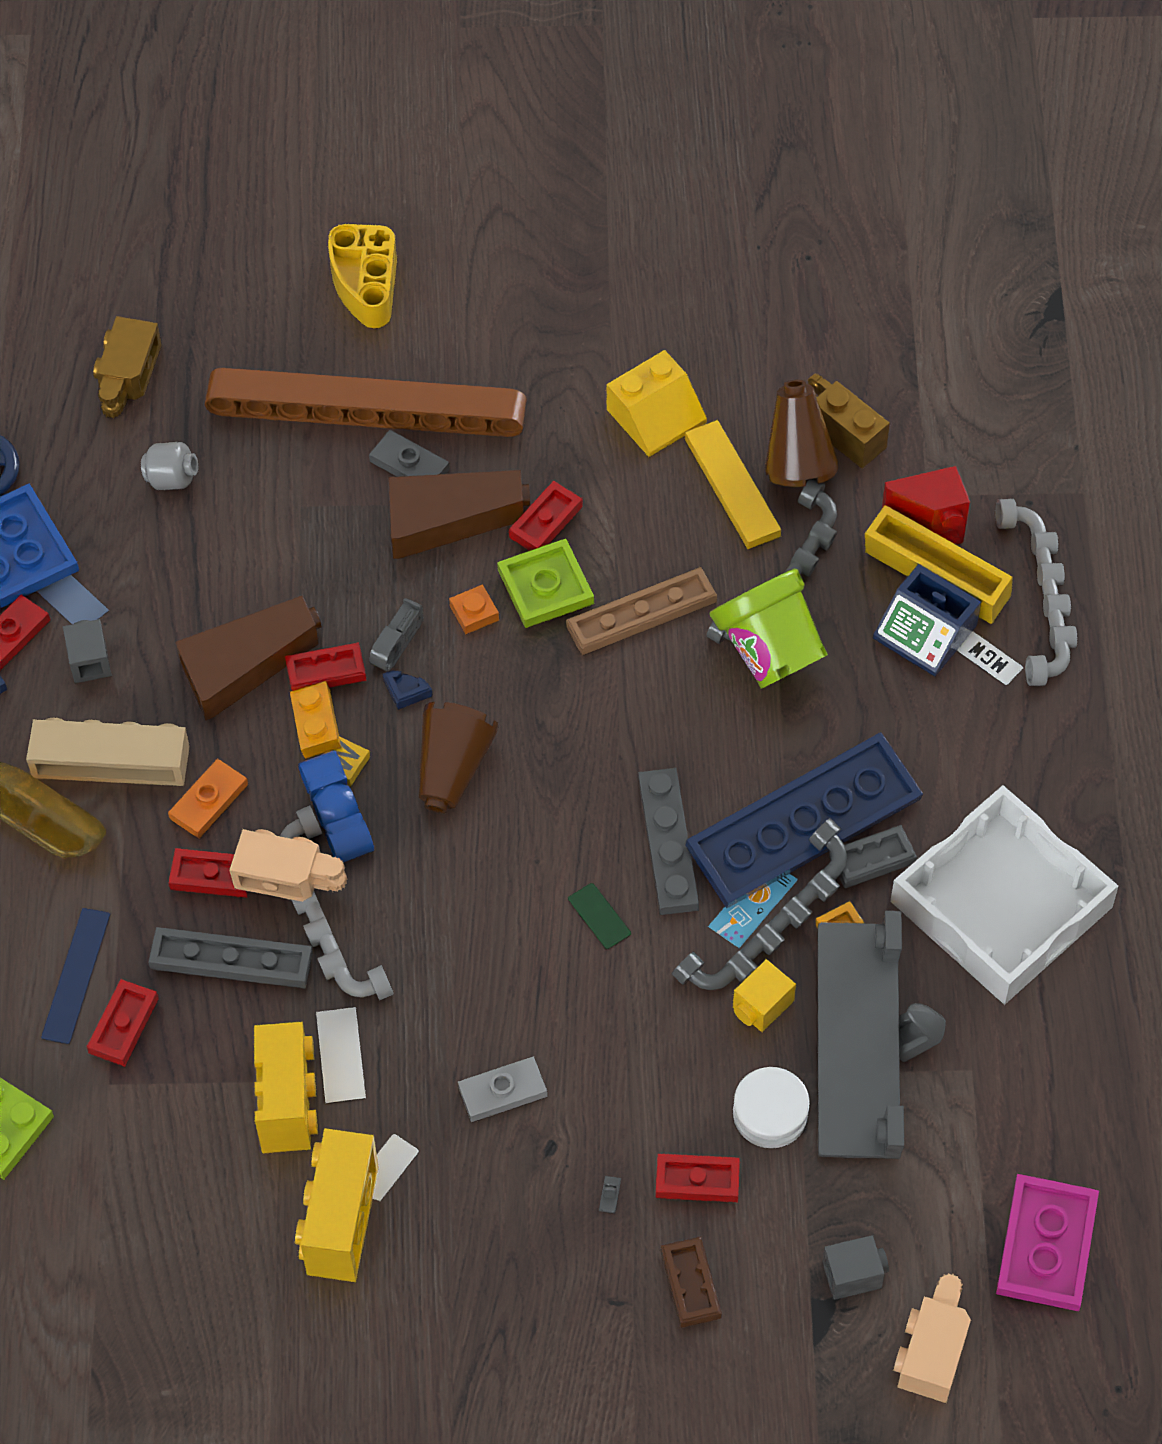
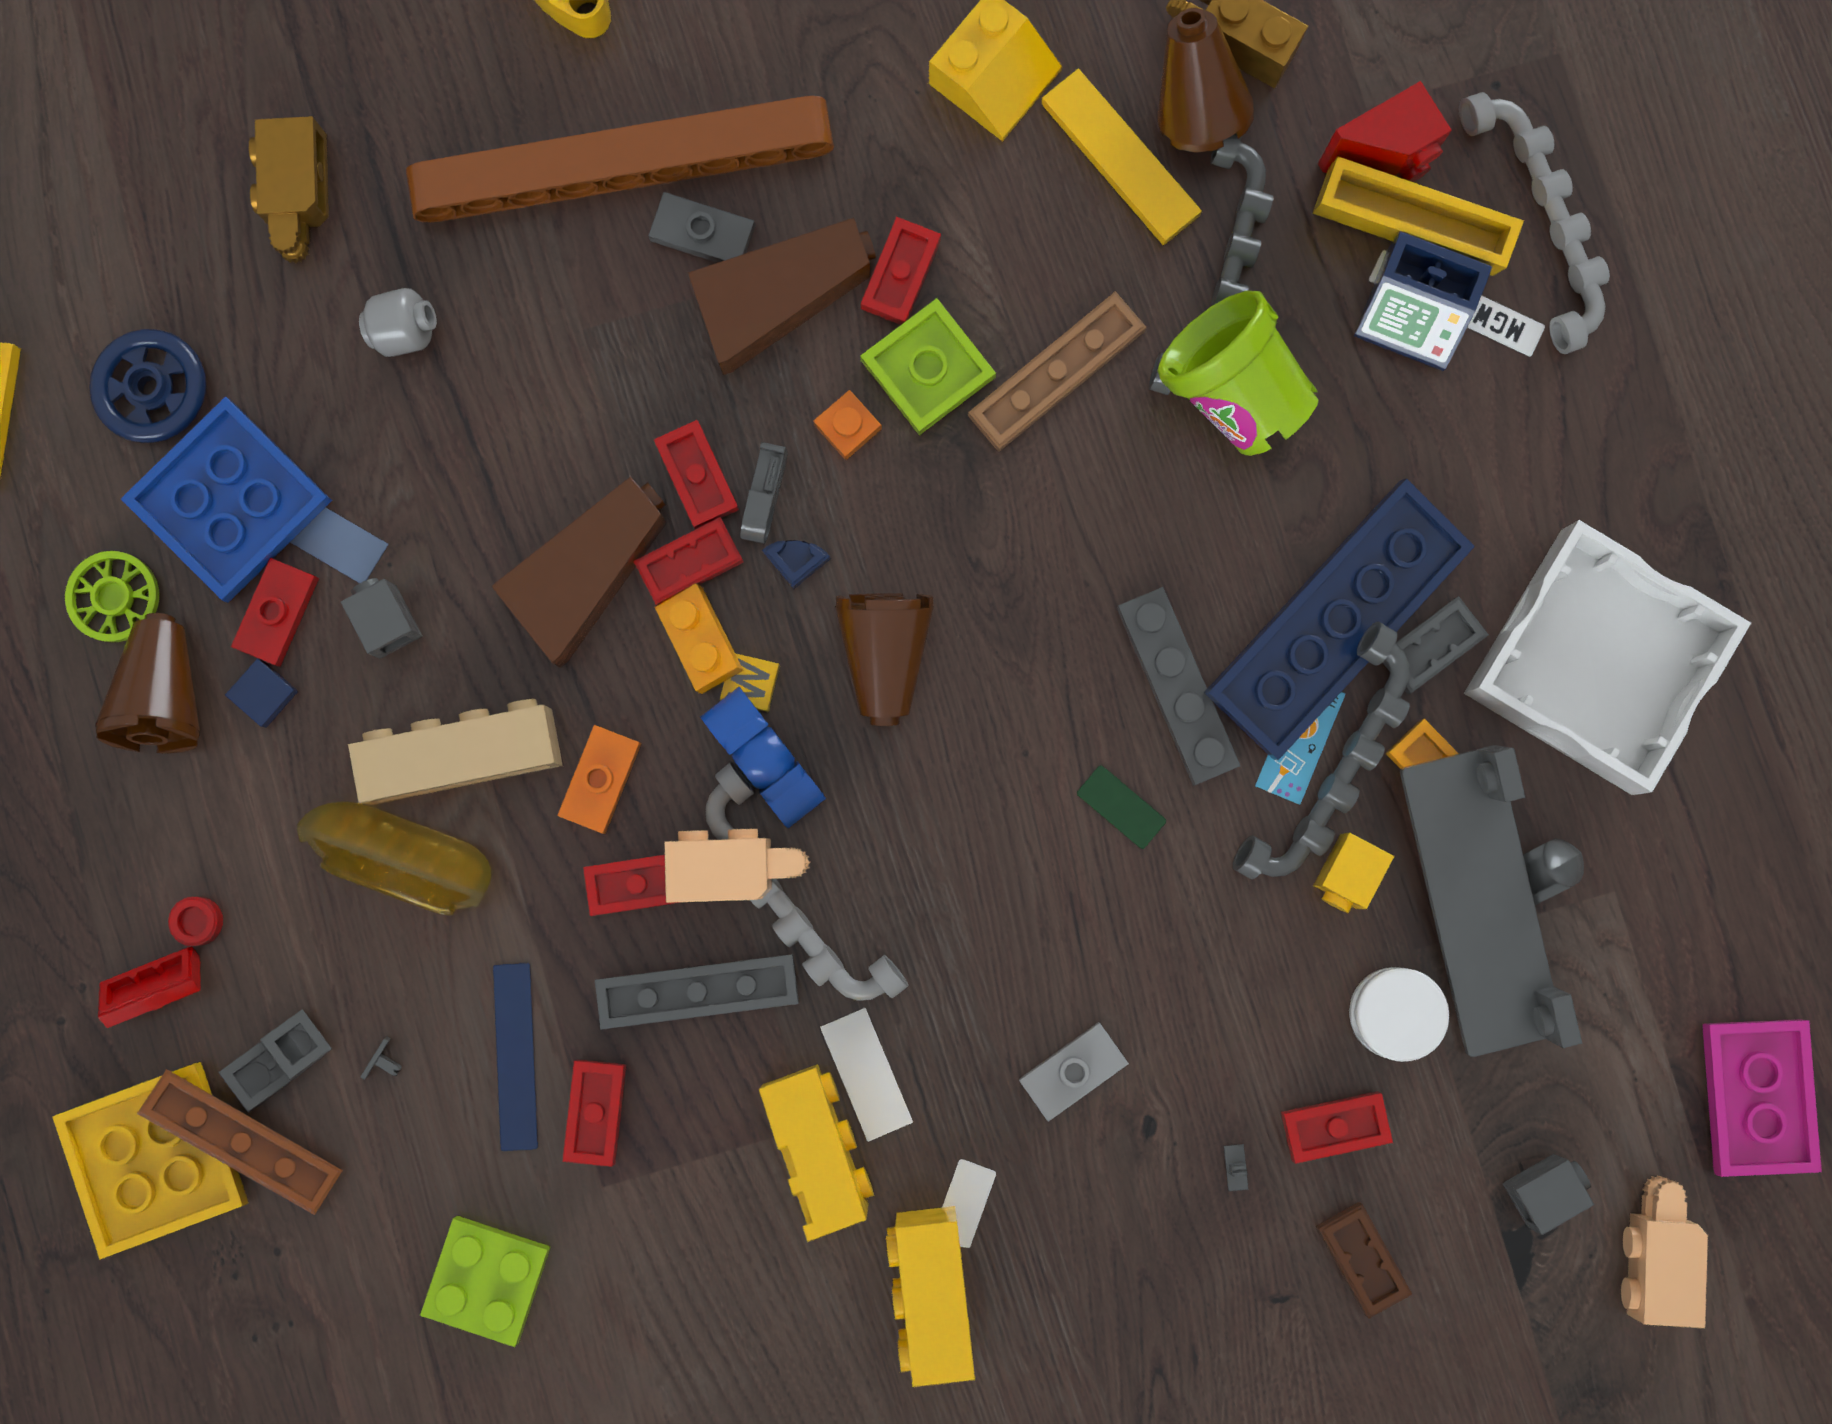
camera: 15 degrees left, 25 degrees up
(351, 611) = (696, 474): none -> red plate

